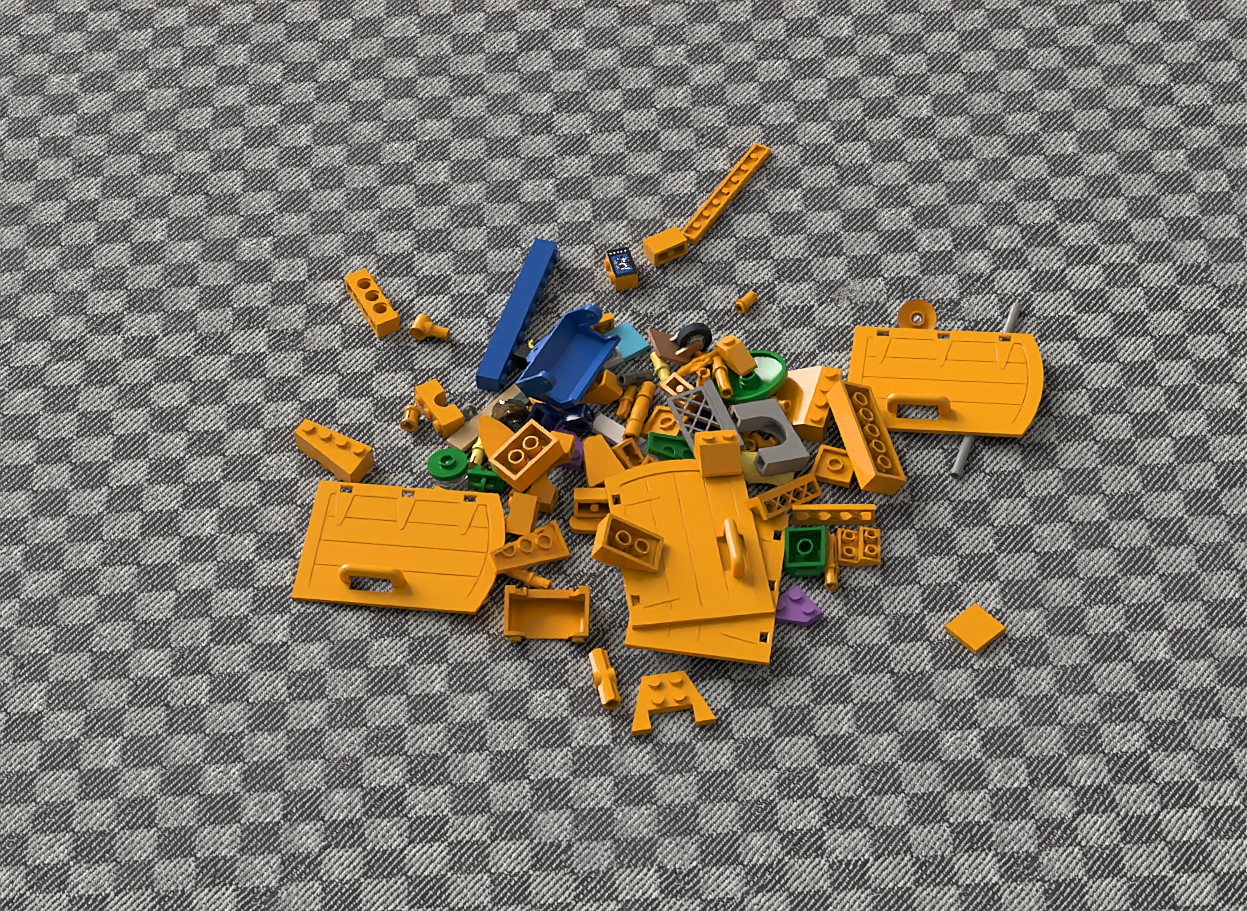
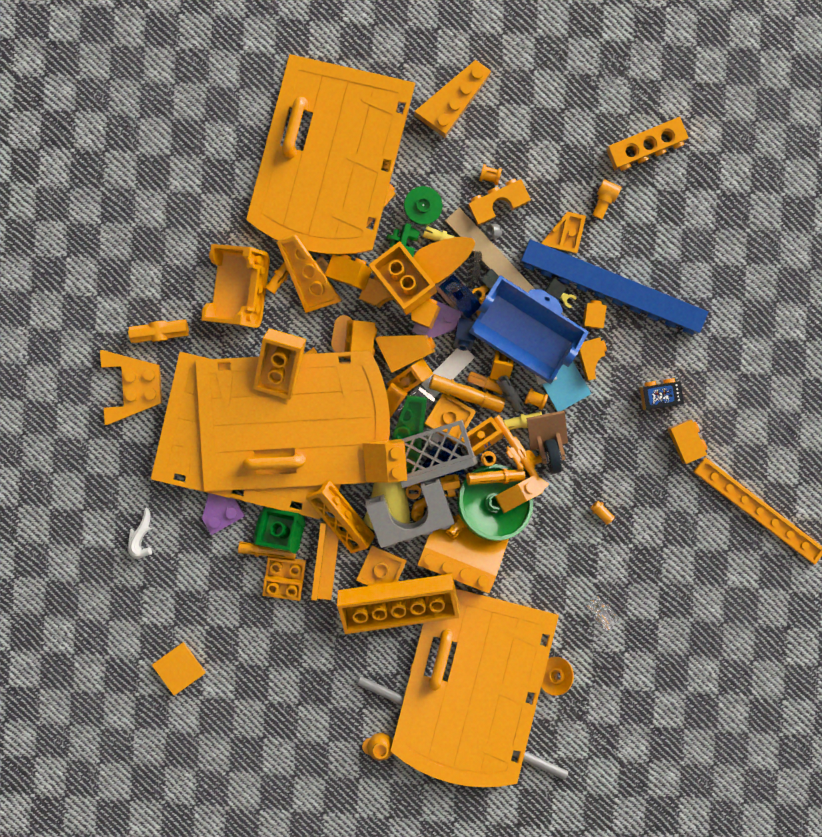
camera: 95 degrees right, 40 degrees up
(465, 354) = (566, 233): none -> light orange wing
(545, 323) = (594, 315): none -> light orange brick
(638, 360) = (536, 398): none -> light orange bush
(837, 679) = (135, 538): none -> white piece
(1022, 451) = (378, 746): none -> light orange piece

